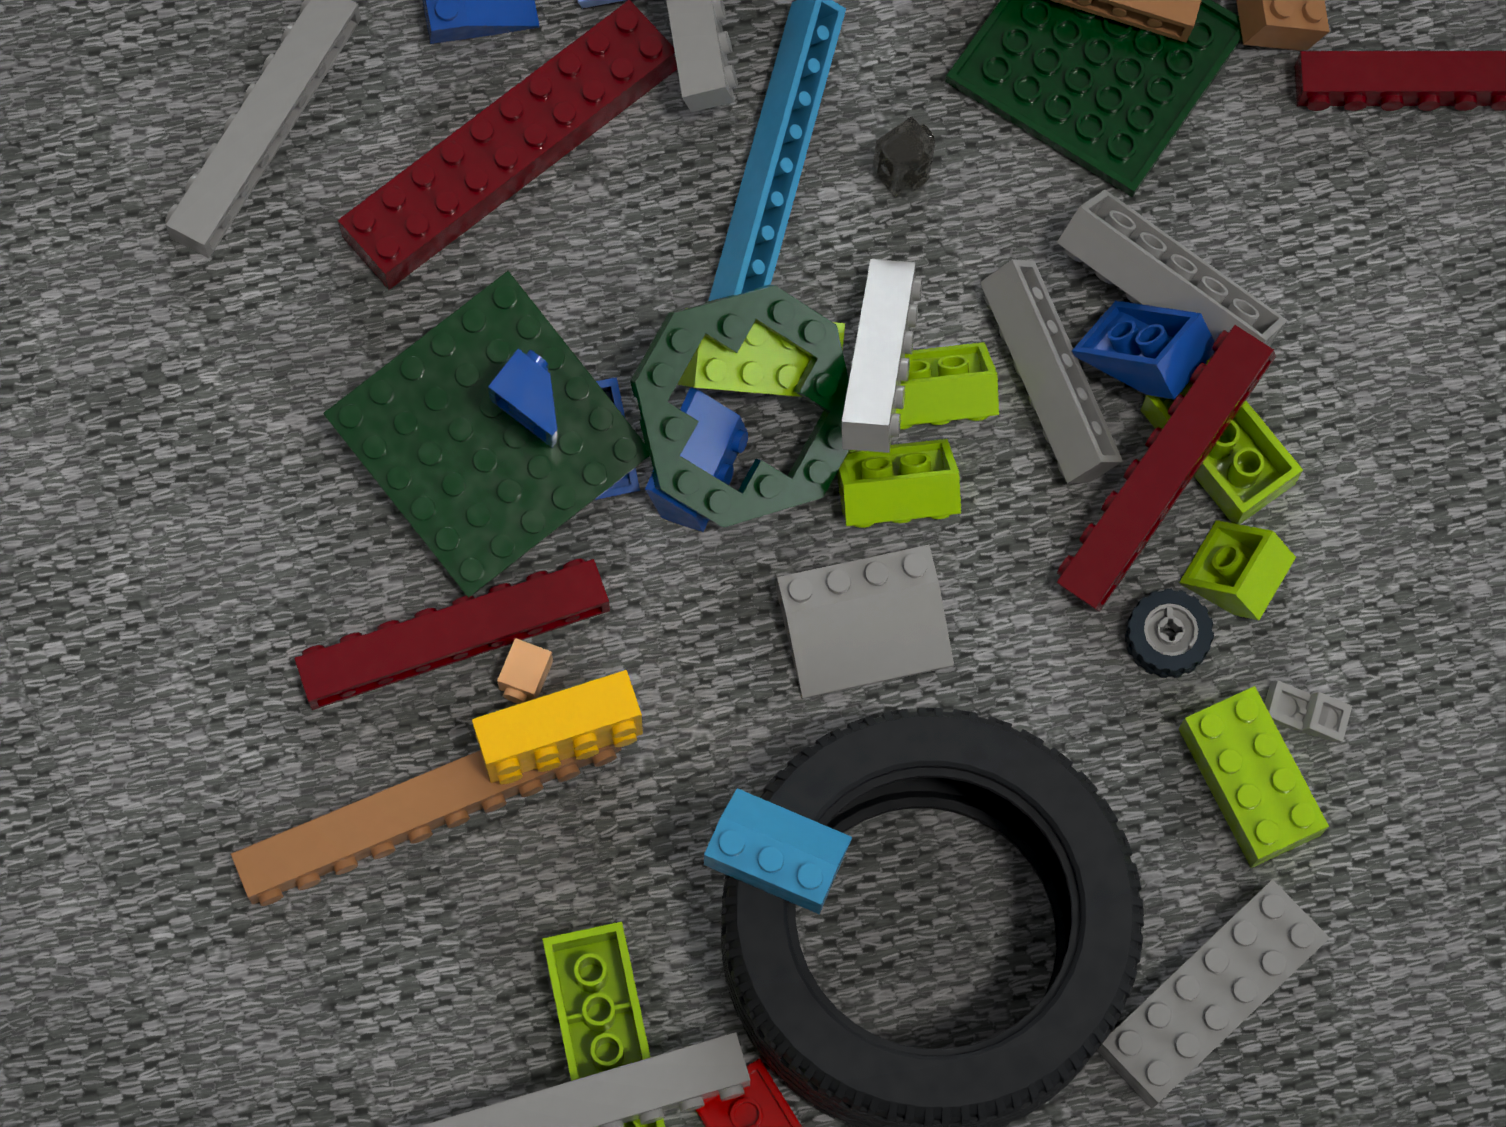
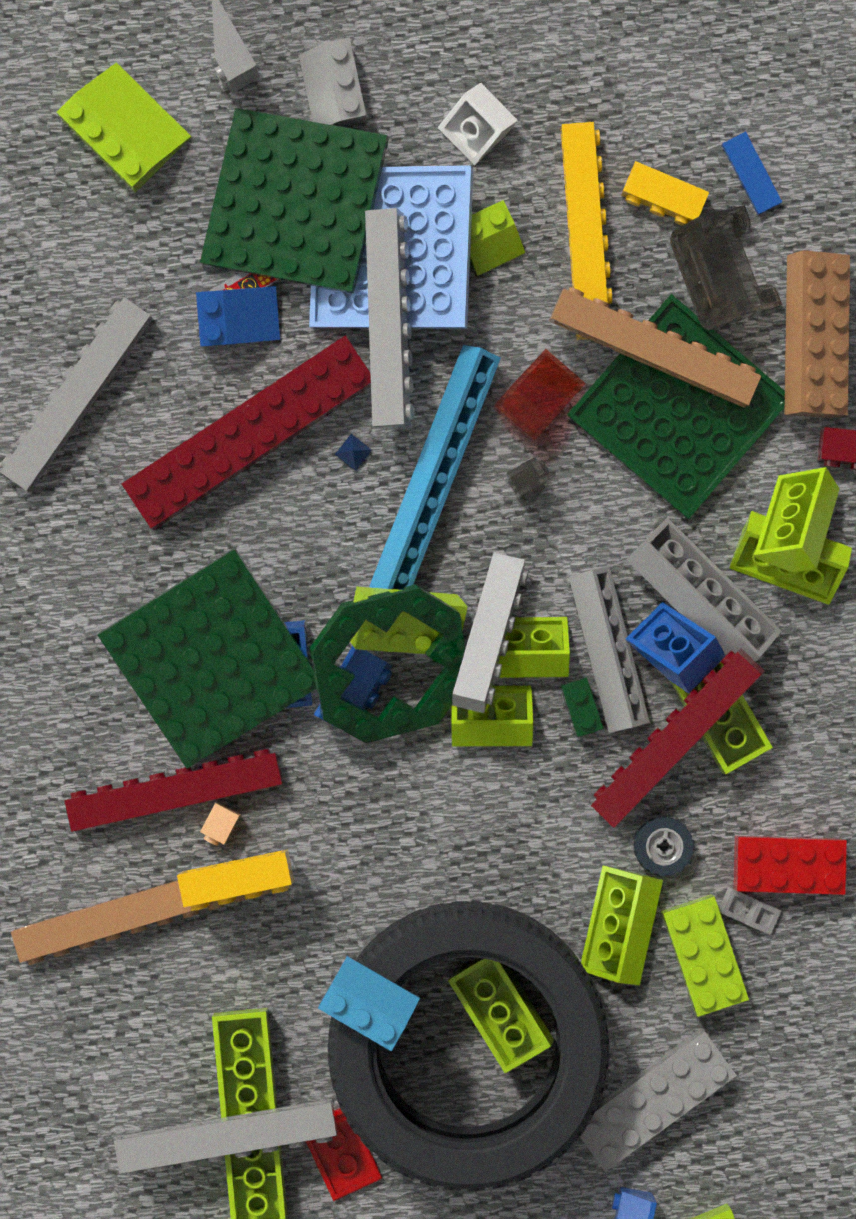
camera: 10 degrees right, 15 degrees up
(526, 394) = (235, 653): blue slope -> none
(657, 159) = (353, 452): none -> dark blue slope
(865, 621) = (456, 815): light grey slope -> none
(902, 61) = (539, 395): none -> clear red slope
(969, 882) = (501, 1012): none -> lime brick
(1023, 454) = (581, 707): none -> dark green brick
(1129, 742) = (621, 925): none -> lime slope
(1239, 568) = (718, 806): lime slope -> none
(1283, 229) = (815, 584): none -> lime slope
(1287, 166) = (798, 520): none -> lime slope
(1354, 636) = (790, 865): none -> red brick

